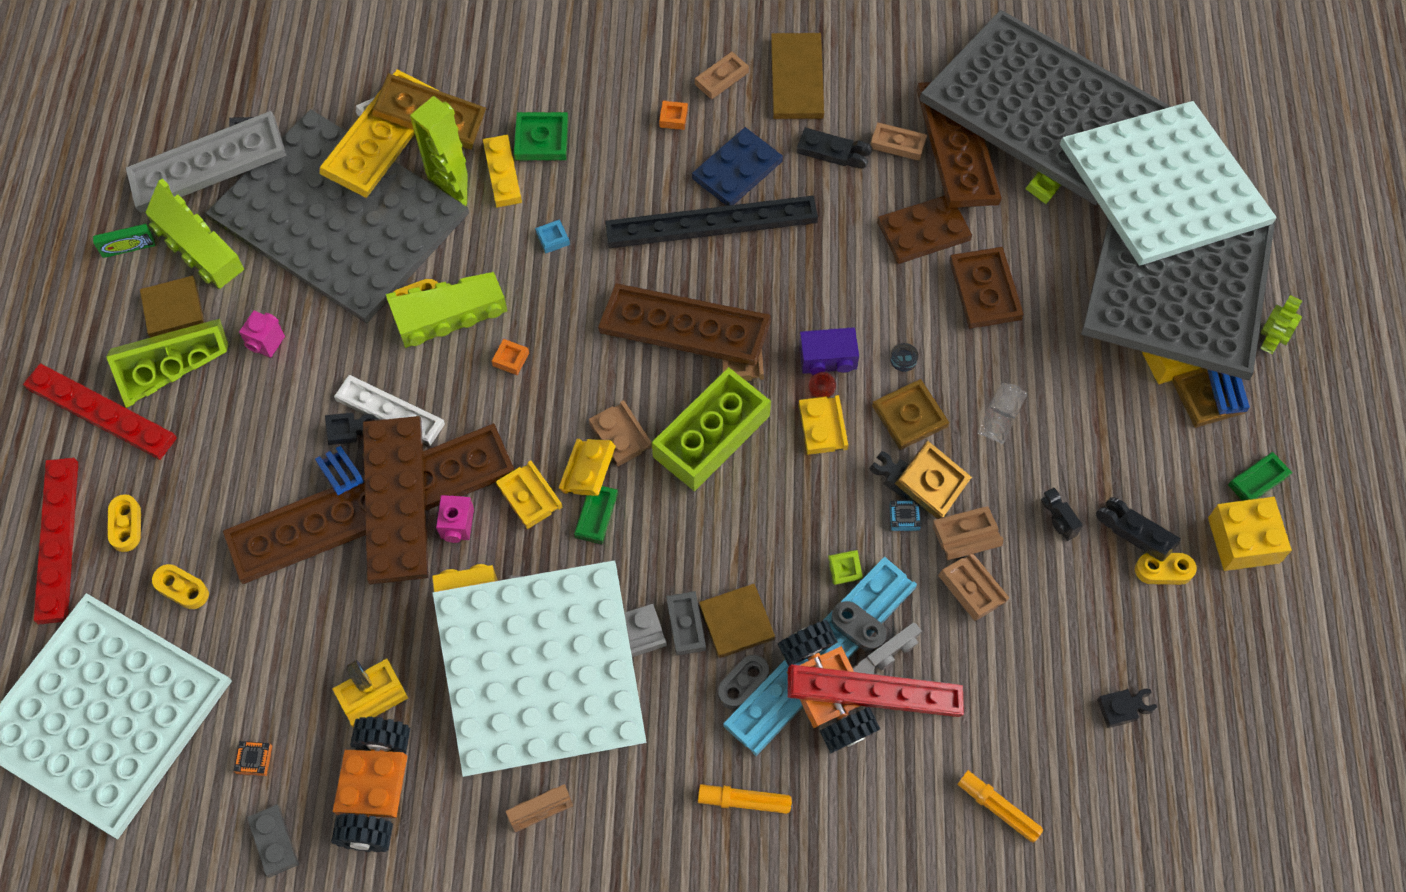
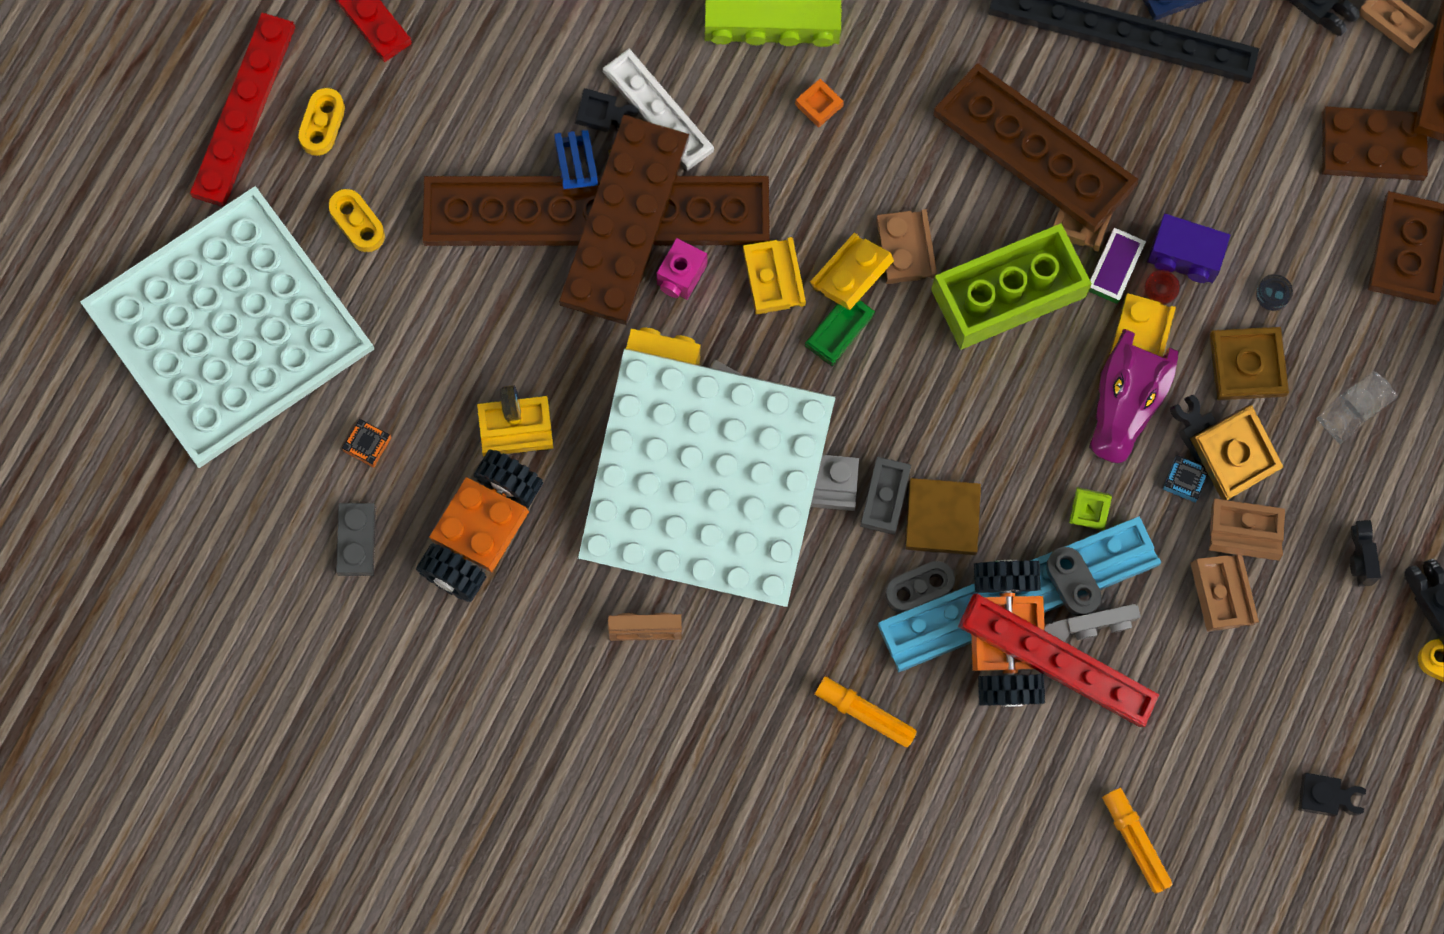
camera: 20 degrees right, 10 degrees up
(782, 384) = (1116, 265): none -> dark purple tile
(835, 468) = (1130, 393): none -> magenta animal

